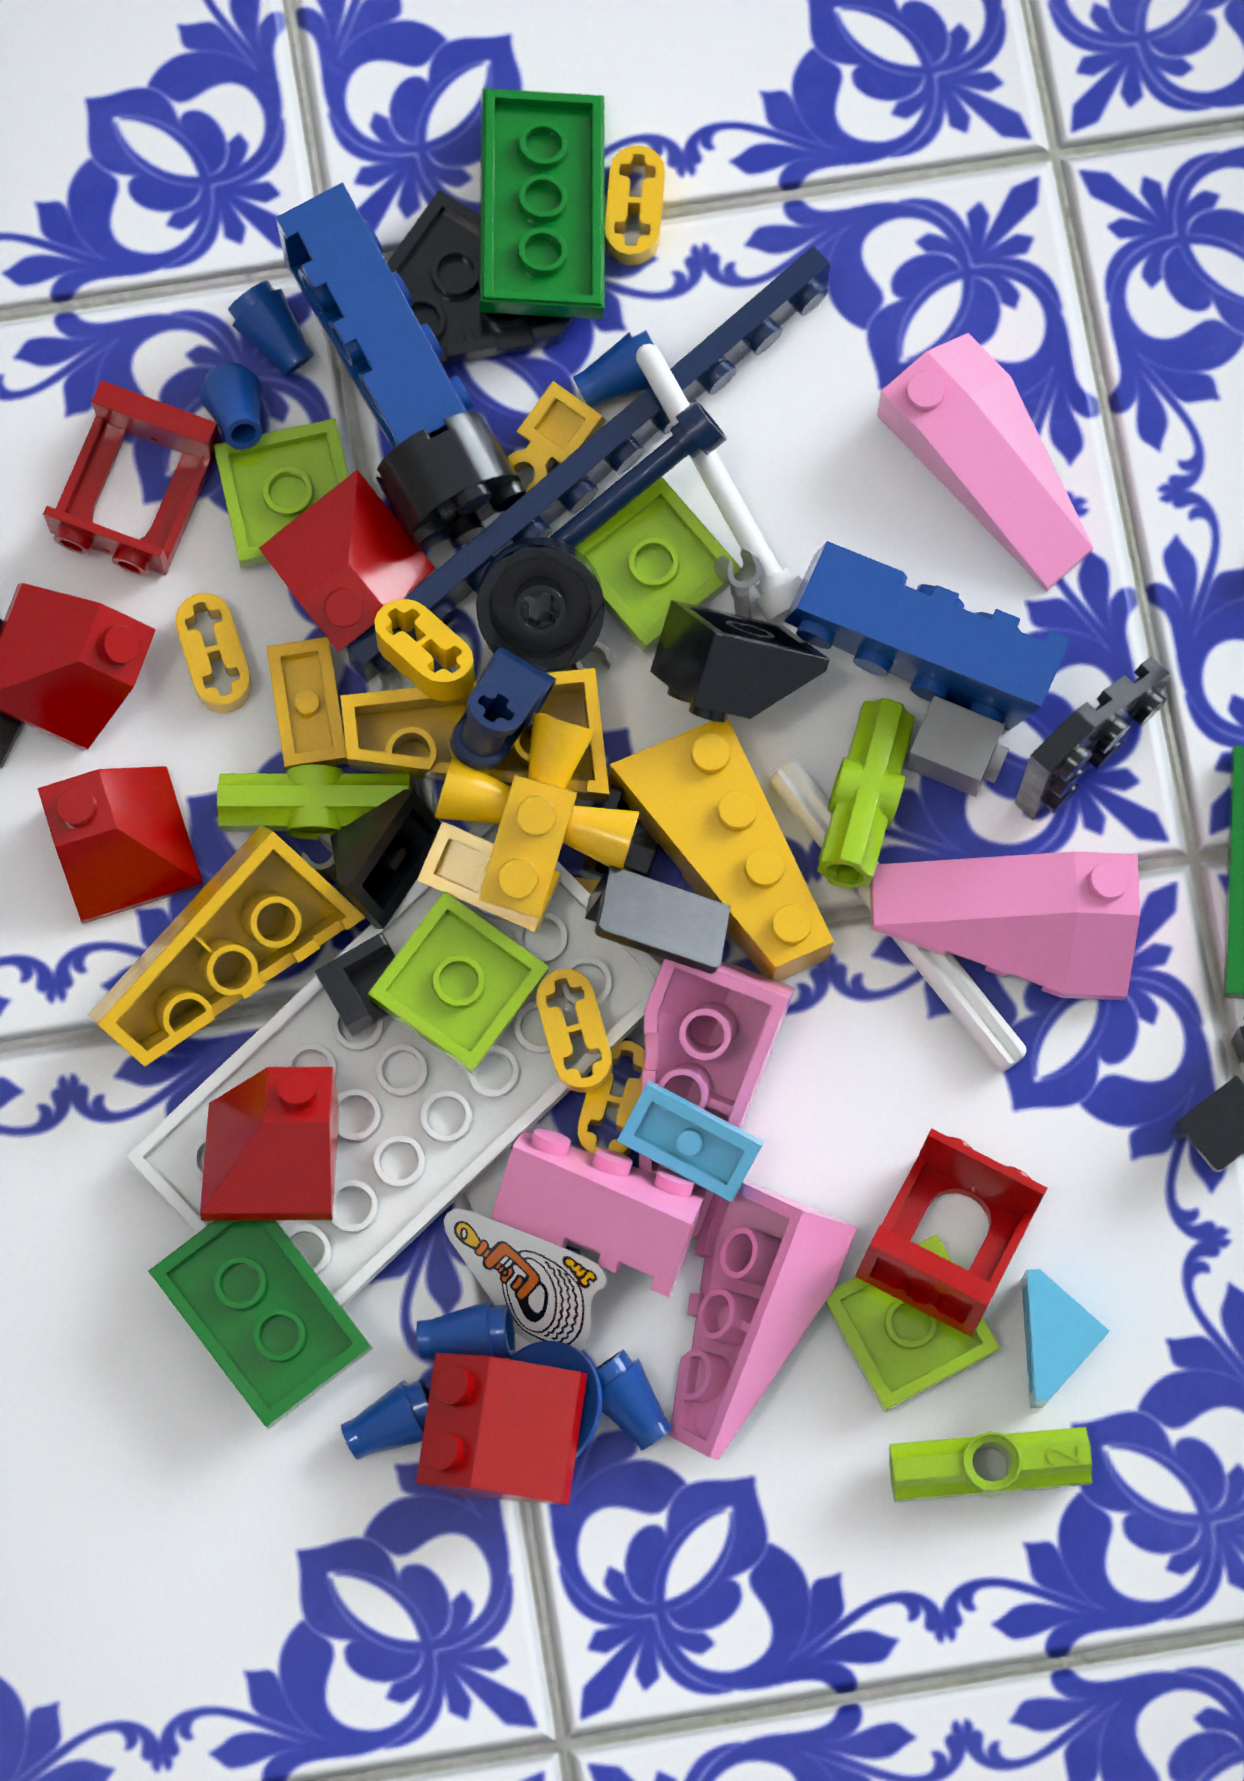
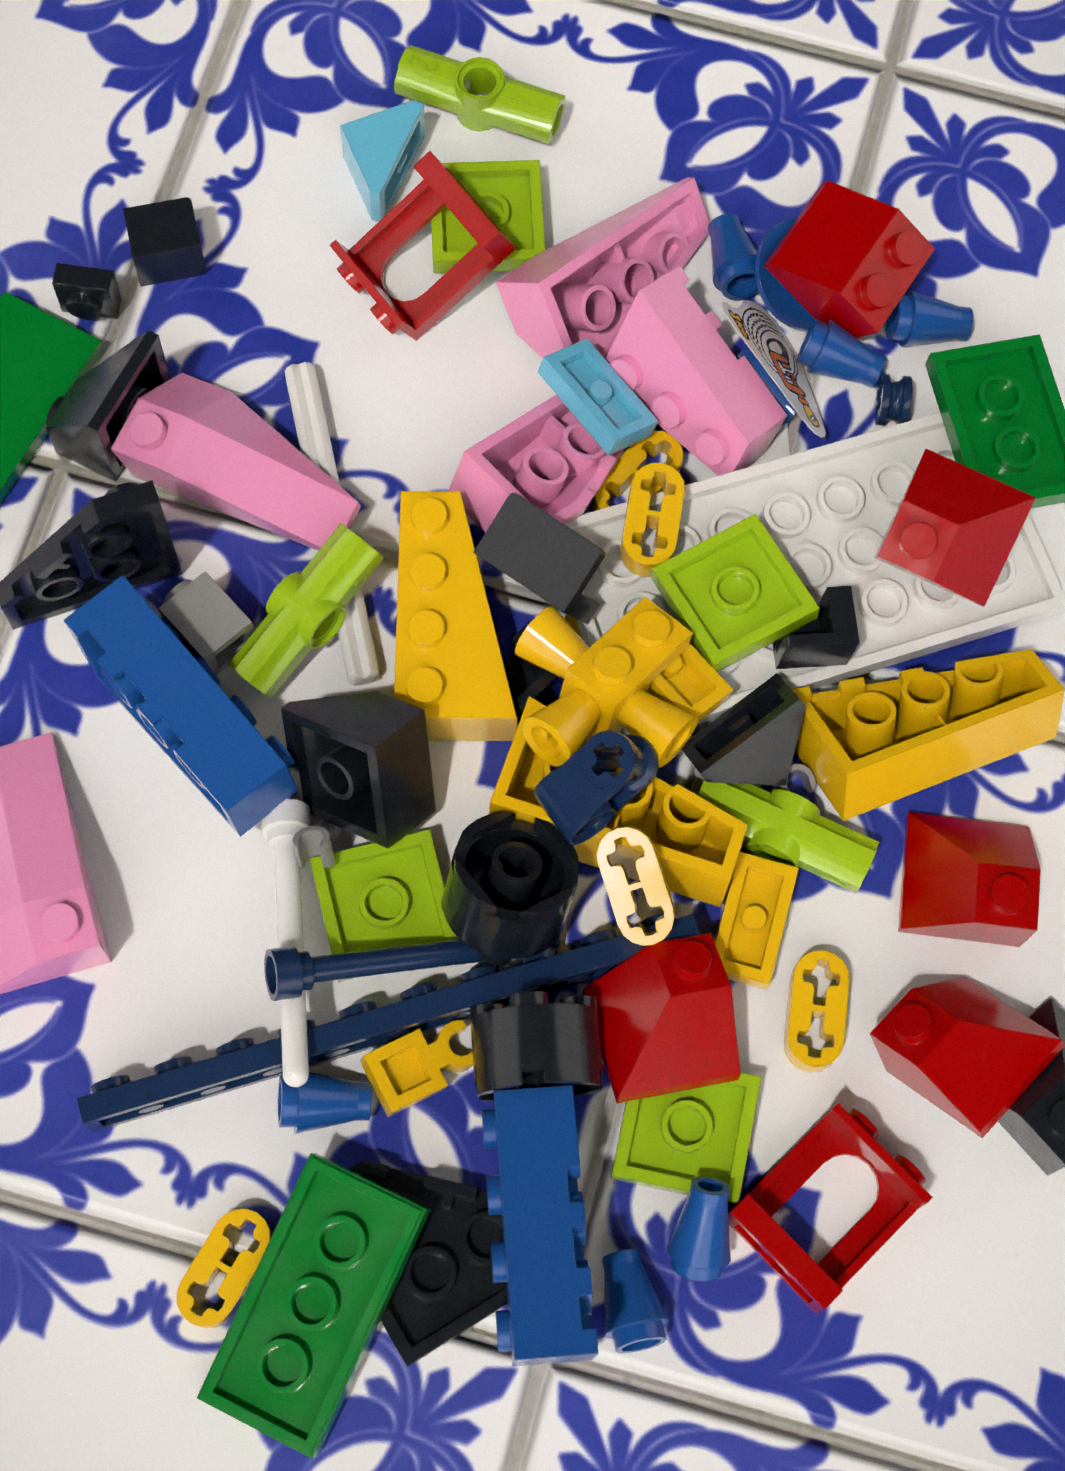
camera: 160 degrees left, 5 degrees down
(391, 1307) = (893, 400): none -> dark blue bush
(1176, 904) = (99, 402): none -> black slope

